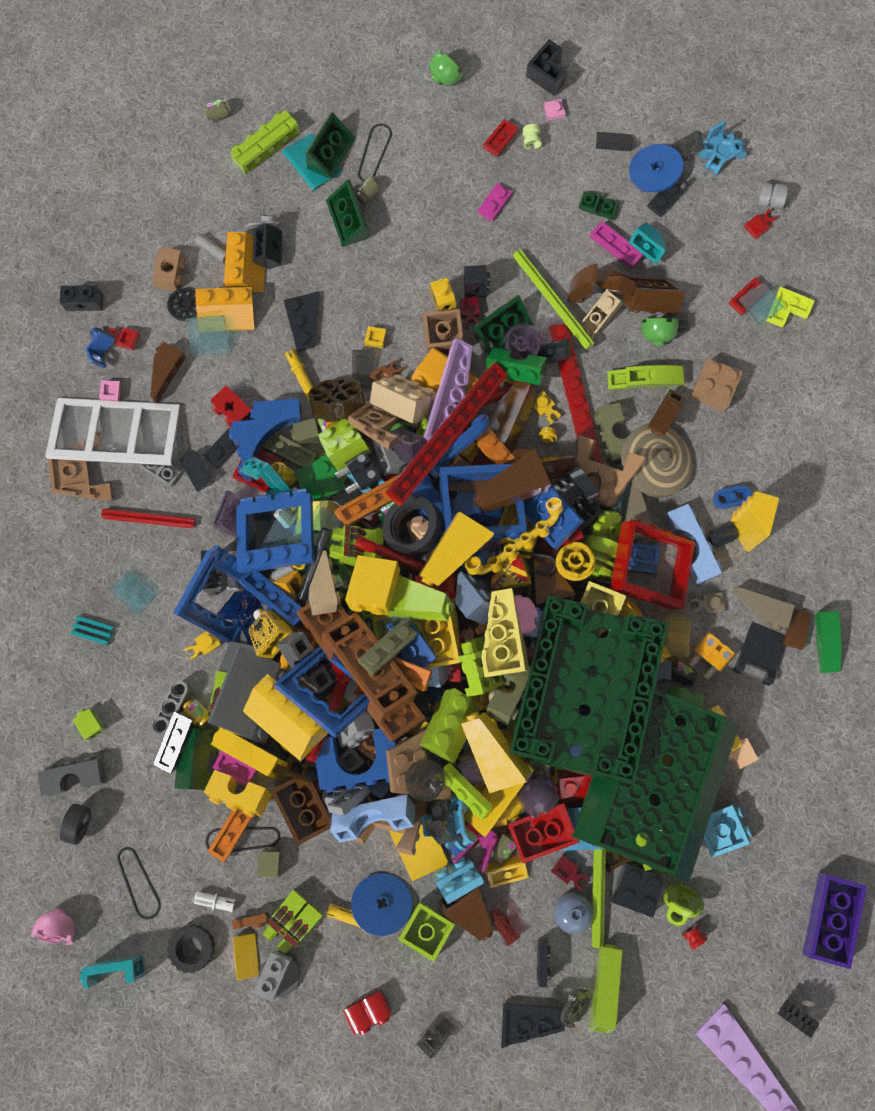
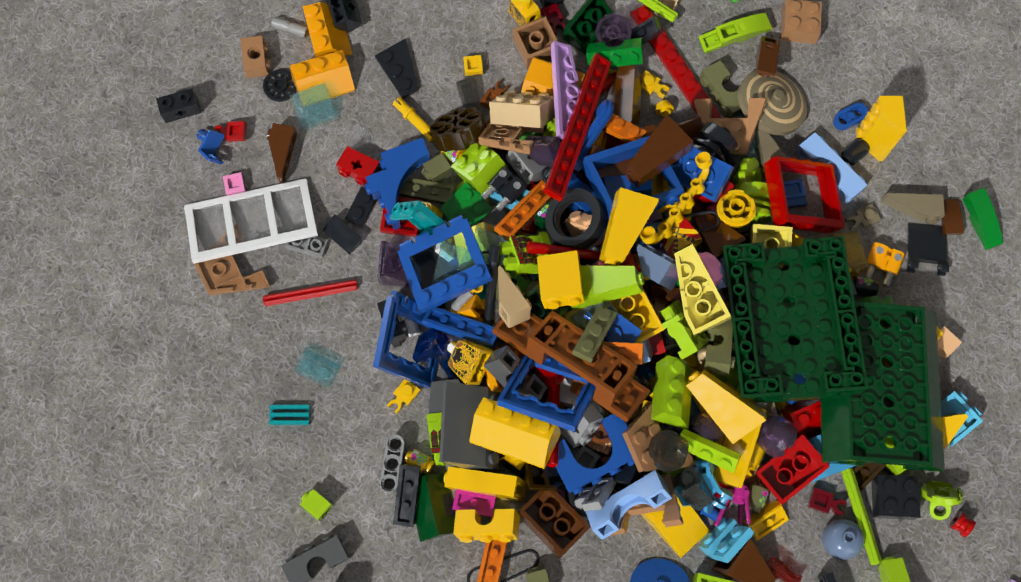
camera: 20 degrees left, 5 degrees down
(713, 838) = (951, 425): none -> yellow slope

